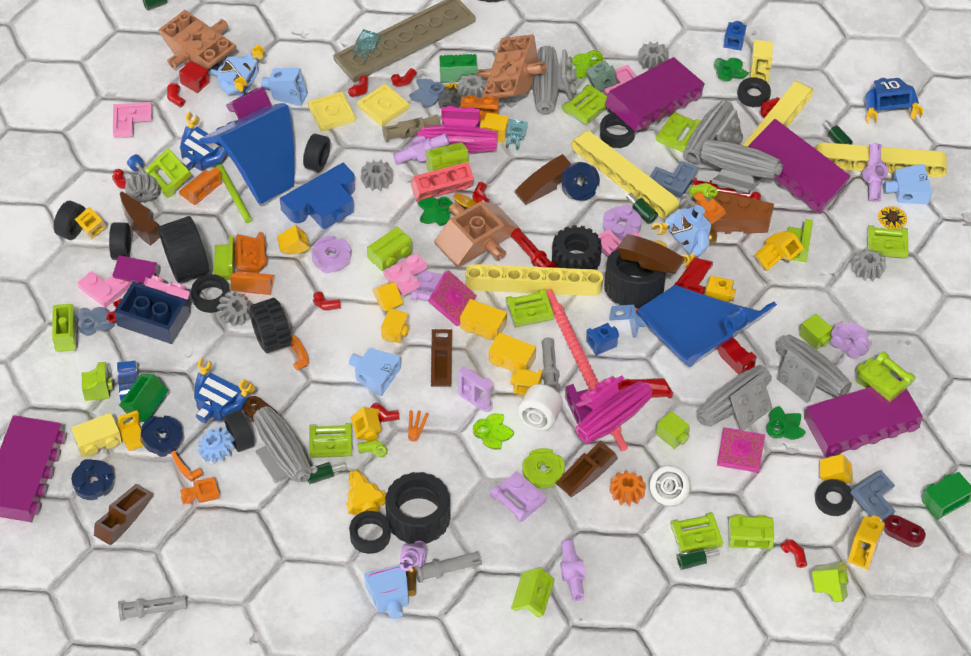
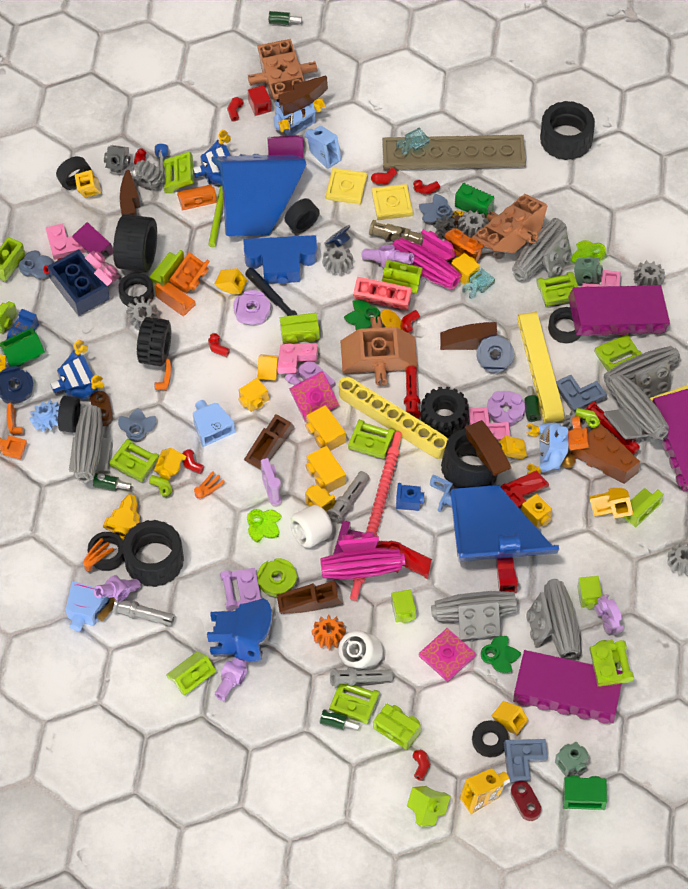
camera: 35 degrees right, 5 degrees up
(94, 184) = (117, 158): none -> dark grey brick
(119, 240) = (97, 210): black tyre -> none
(126, 114) = (183, 106): bright pink plate -> none
(236, 51) = (302, 95): none -> reddish brown slope
(306, 407) = (136, 423): none -> sand blue plate
(324, 230) = (262, 285): none -> black piece
(362, 154) = (339, 237): none -> dark blue piece
(365, 544) = (95, 556): none -> orange piece
(557, 516) = (241, 630): none -> blue piece
(681, 512) = (354, 676): none -> light grey pin
(916, 473) = (572, 759): none -> sand green brick

